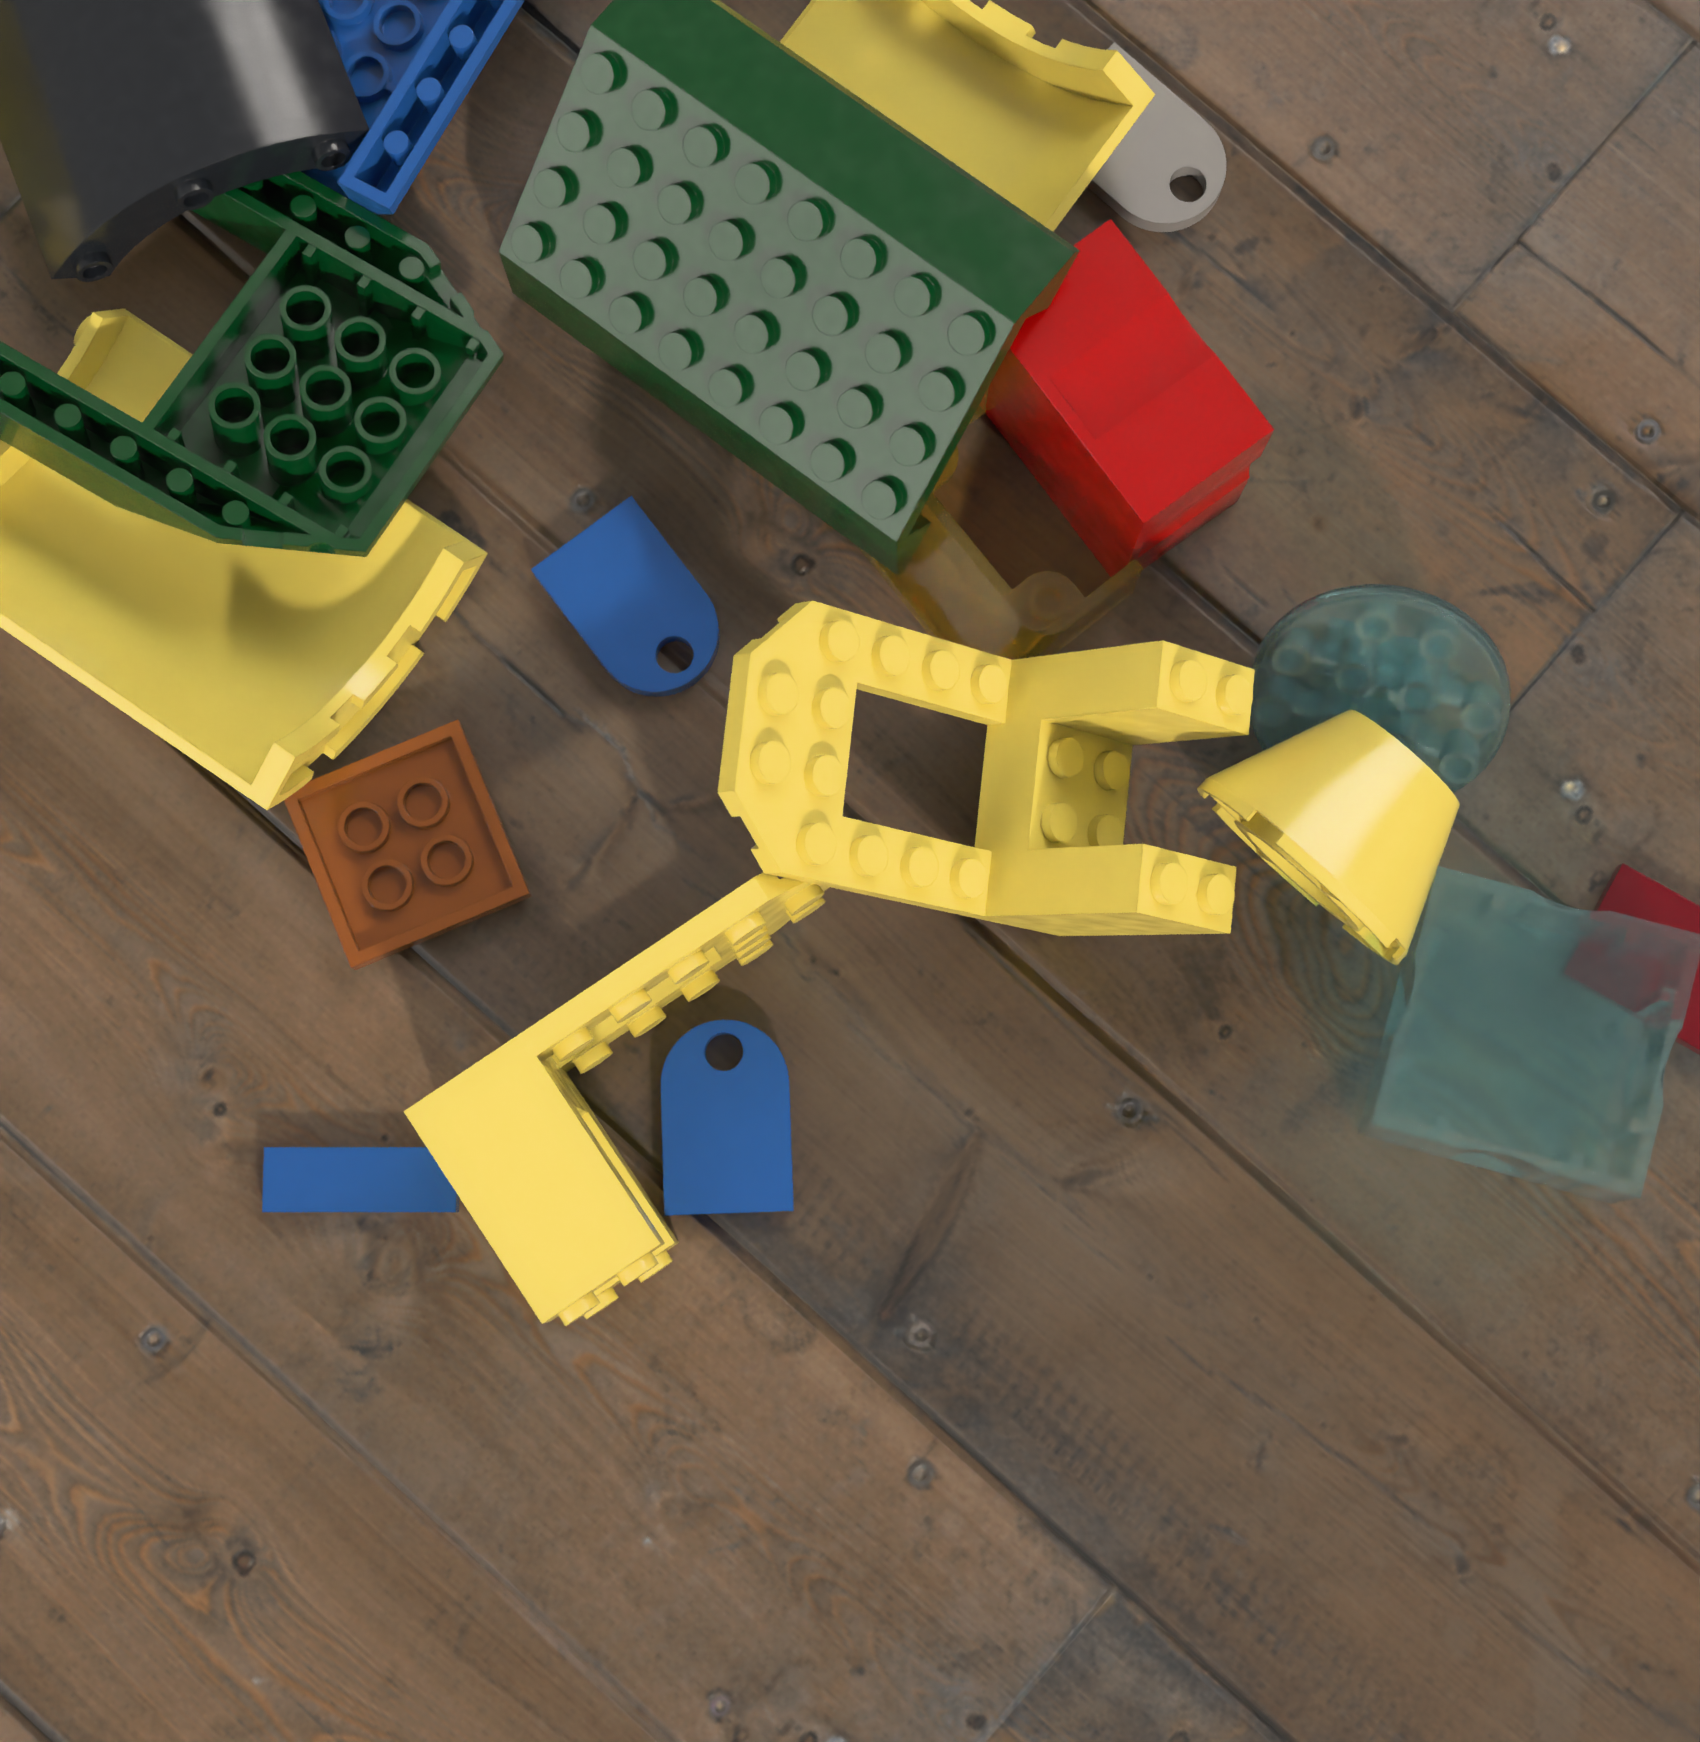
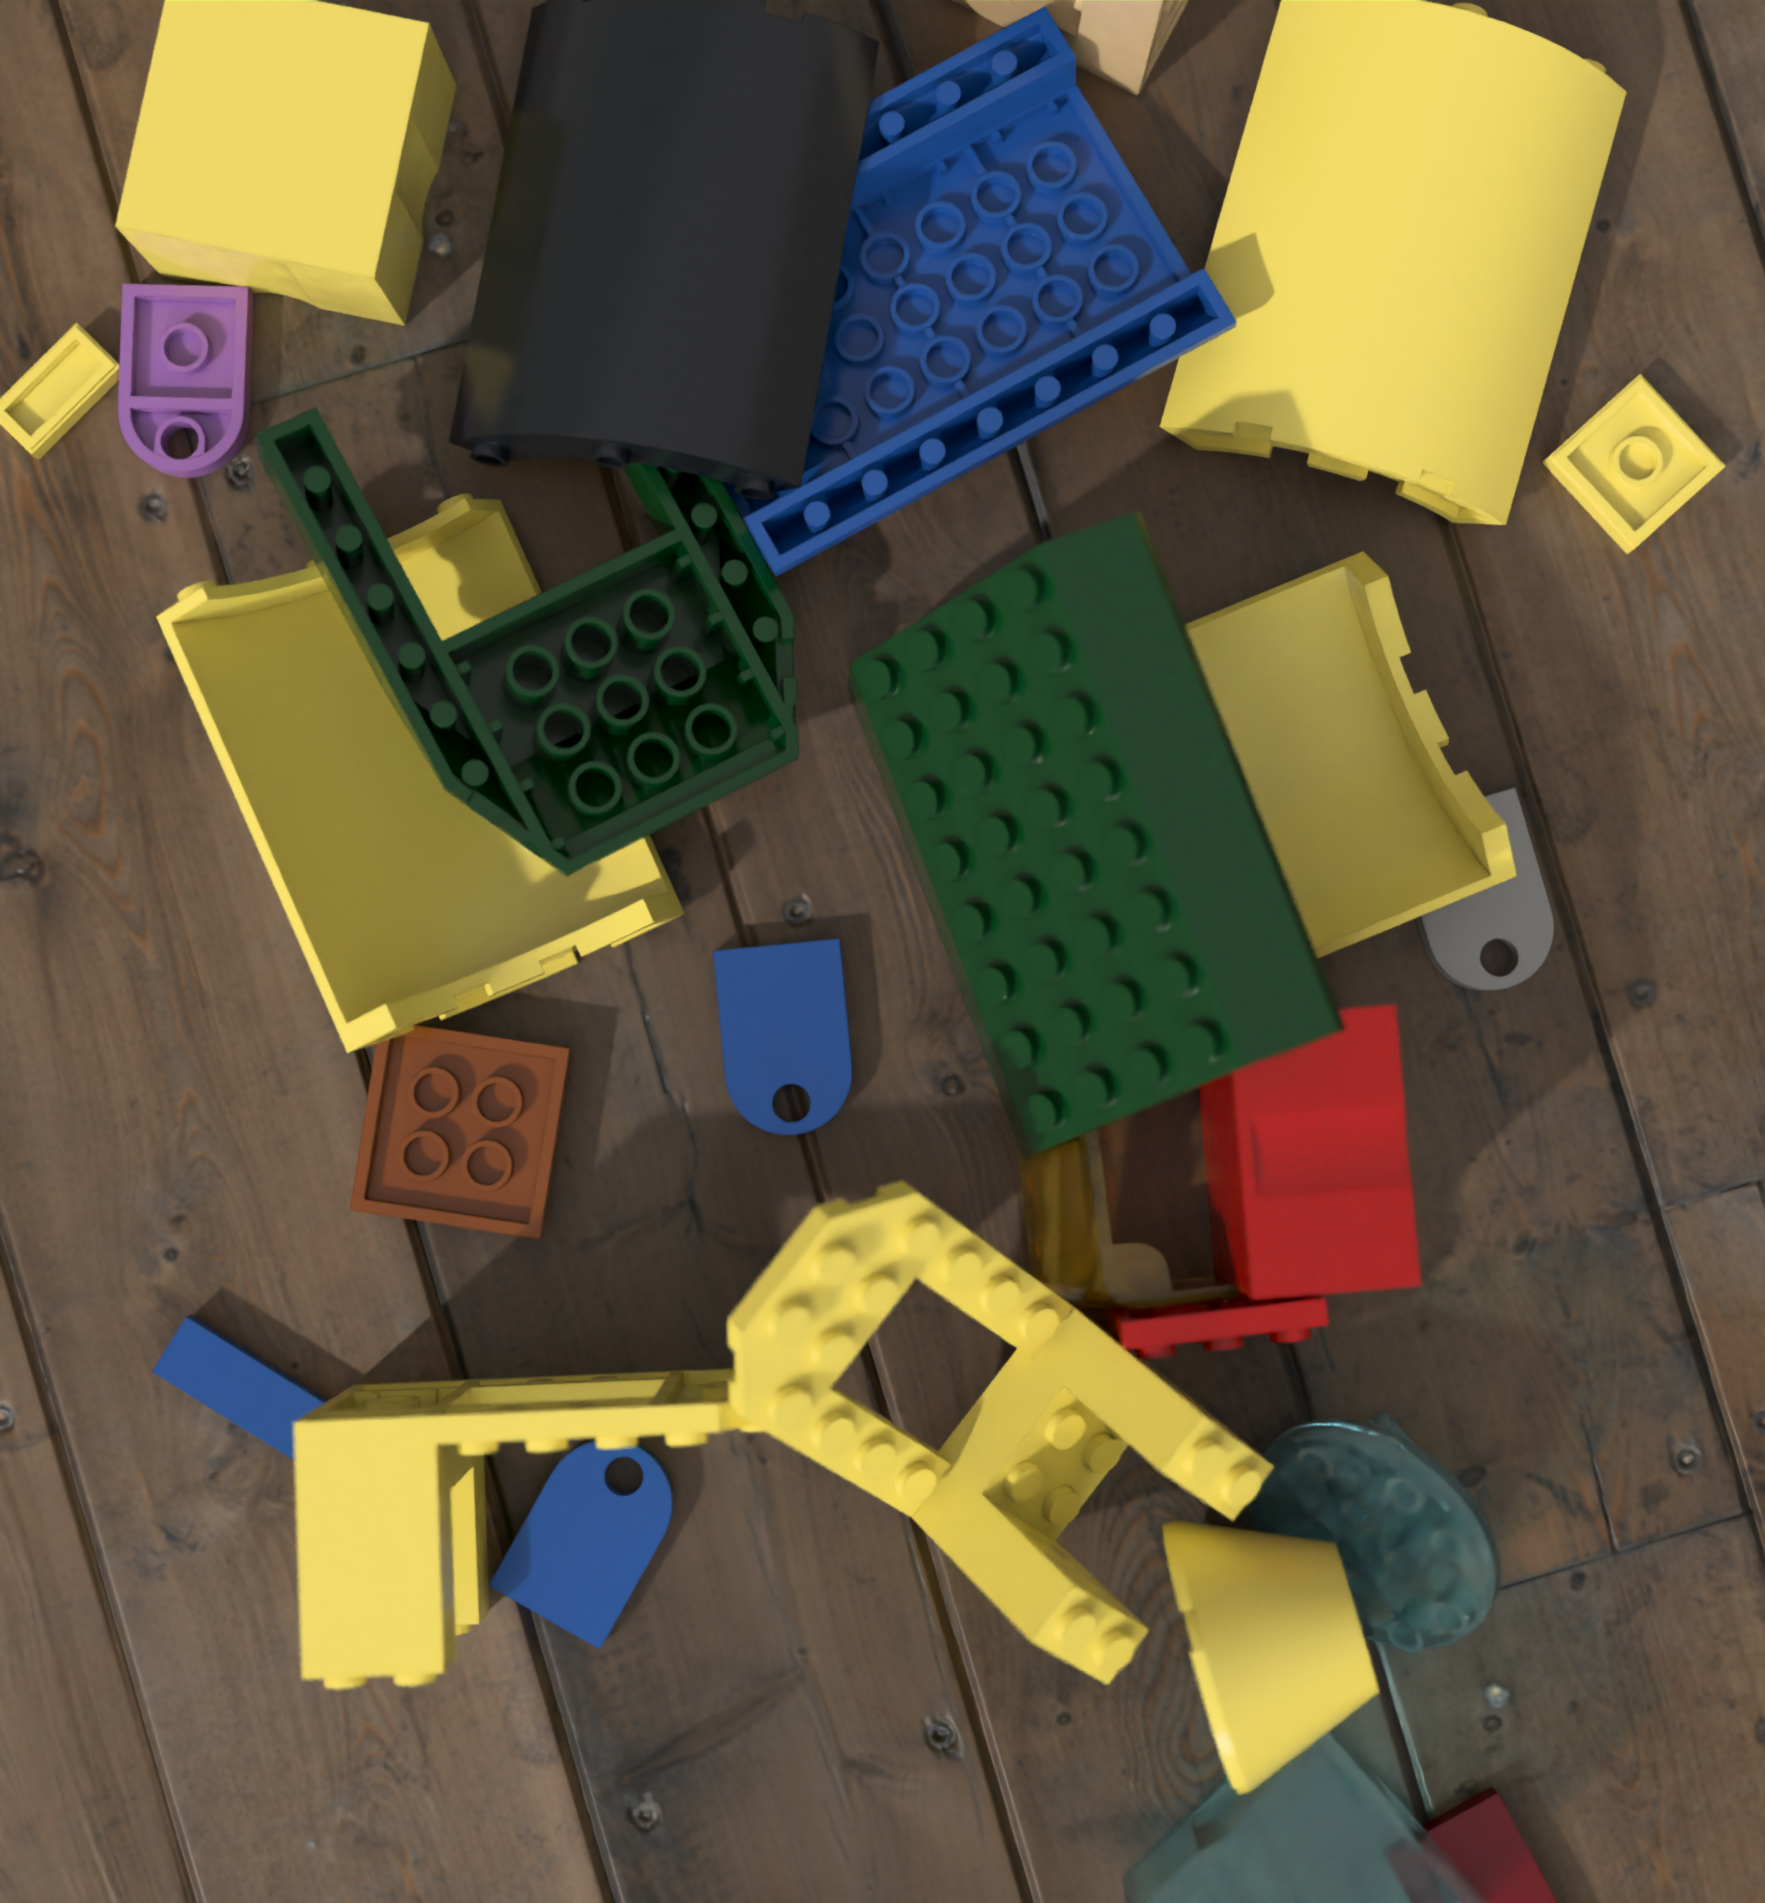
camera: 30 degrees right, 5 degrees up
(1131, 597) = (1215, 1323): none -> red plate

